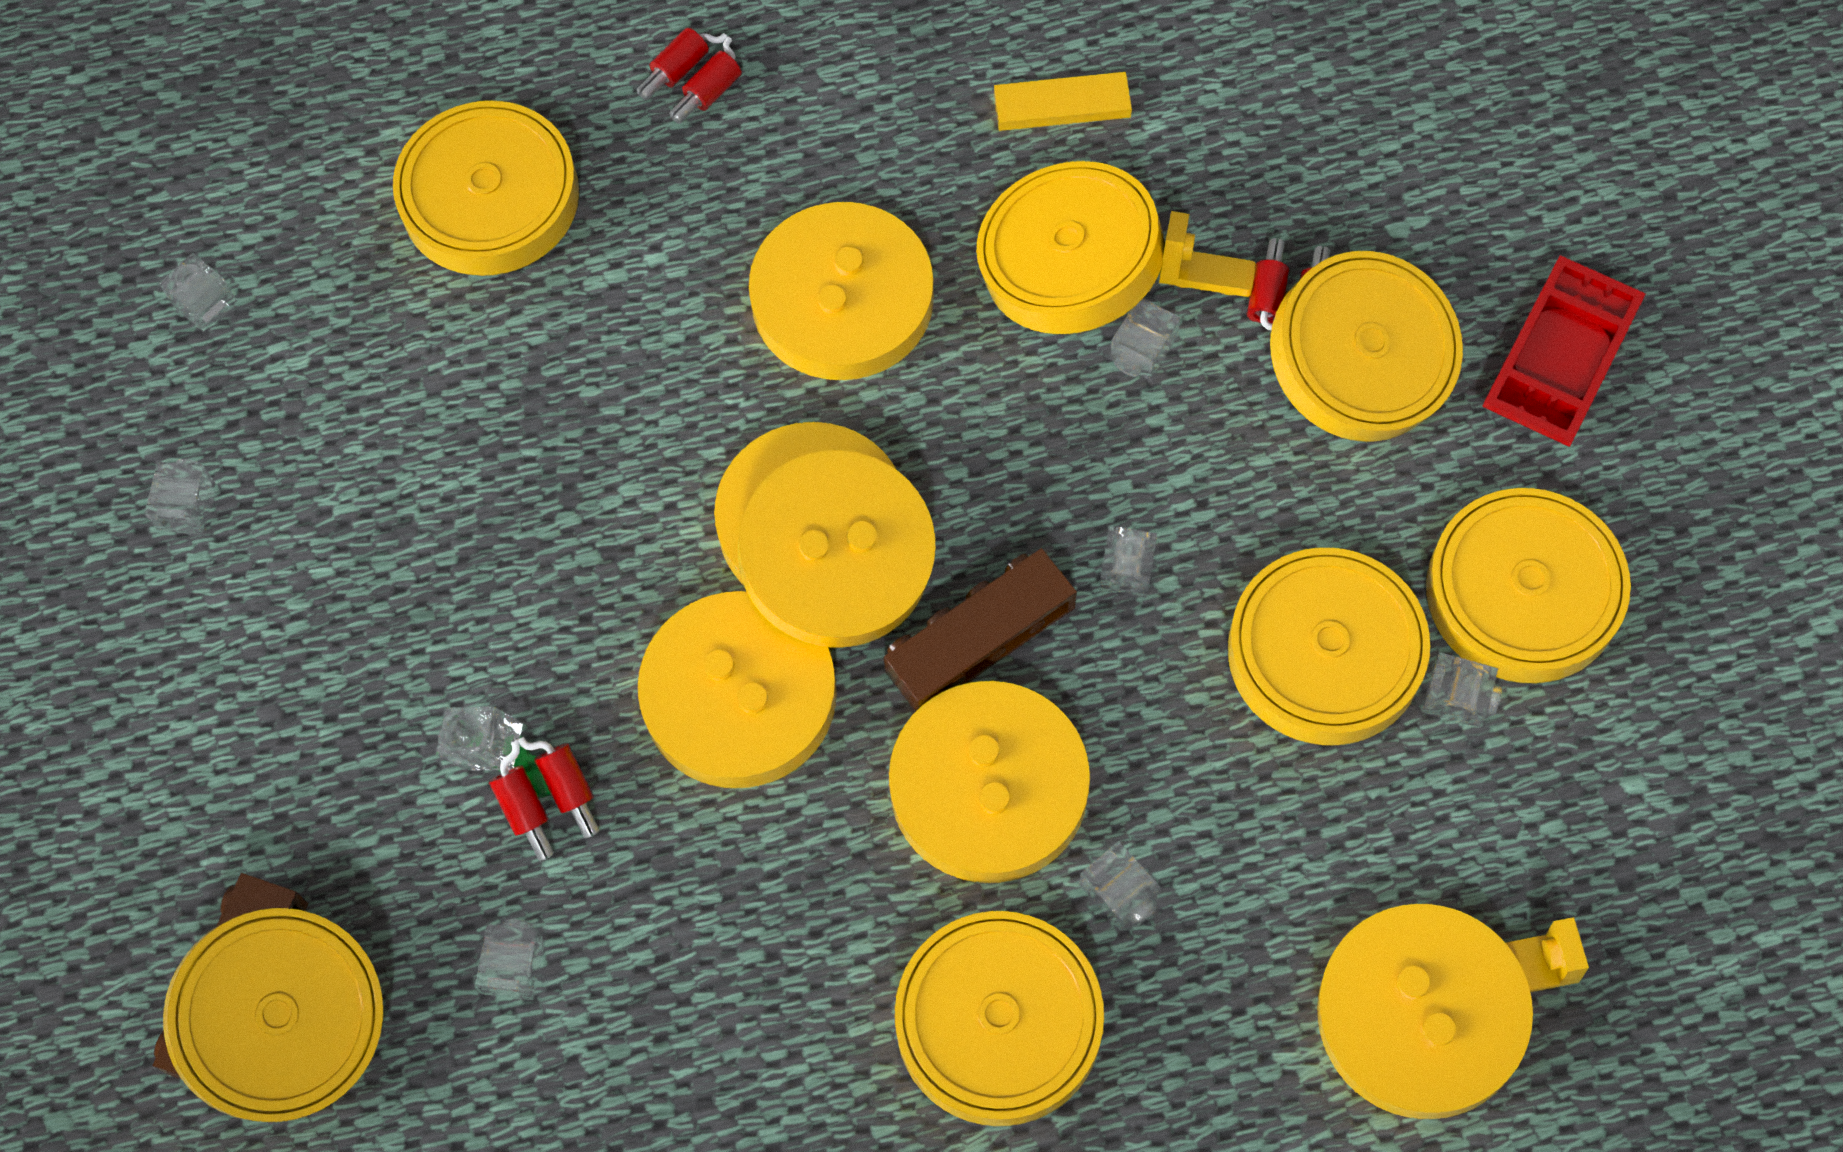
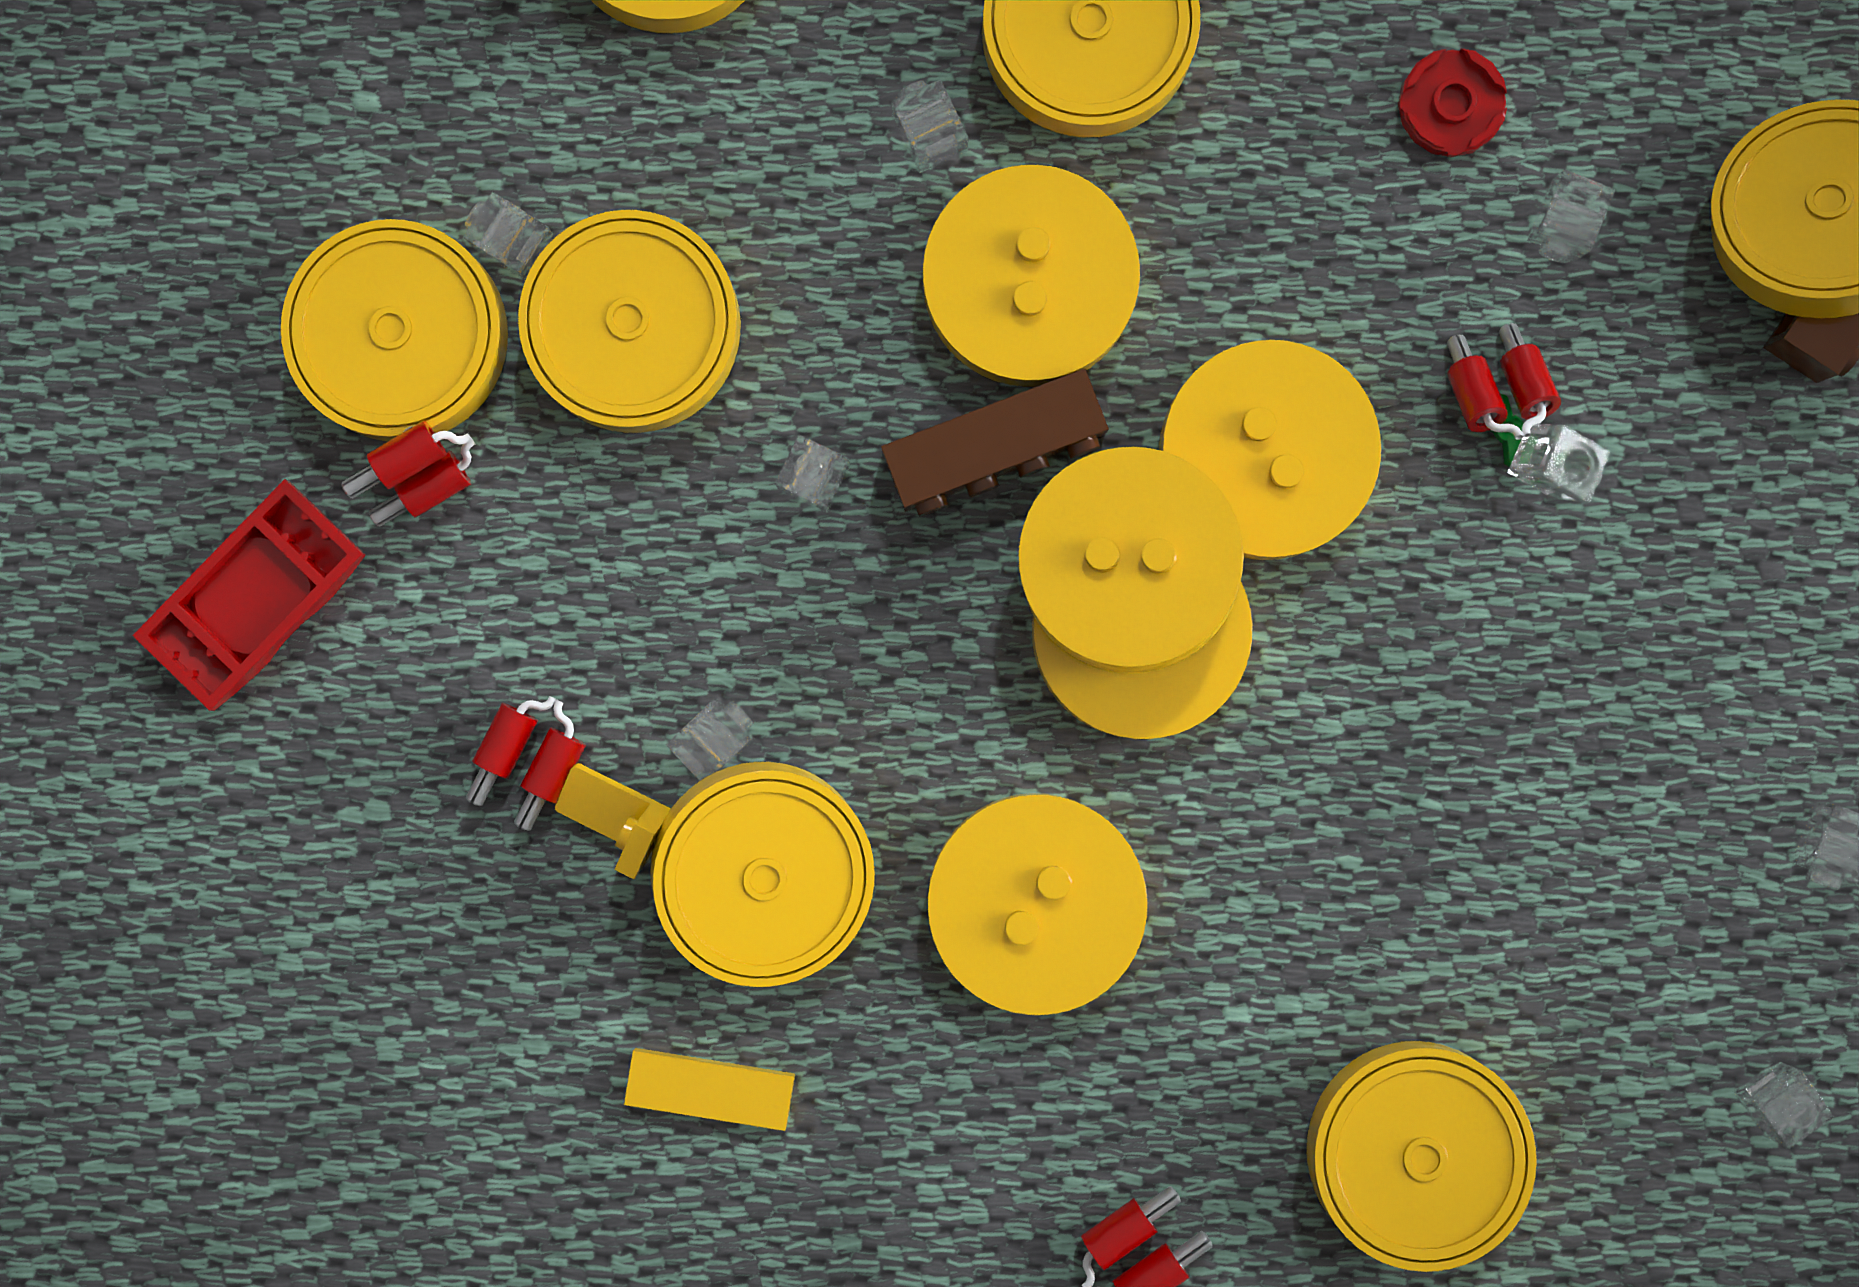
camera: 165 degrees left, 20 degrees up
(651, 1063) = (1443, 119): none -> red tile
(1366, 346) = (468, 654): yellow brick -> none
(1466, 472) = (416, 469): none -> red piece

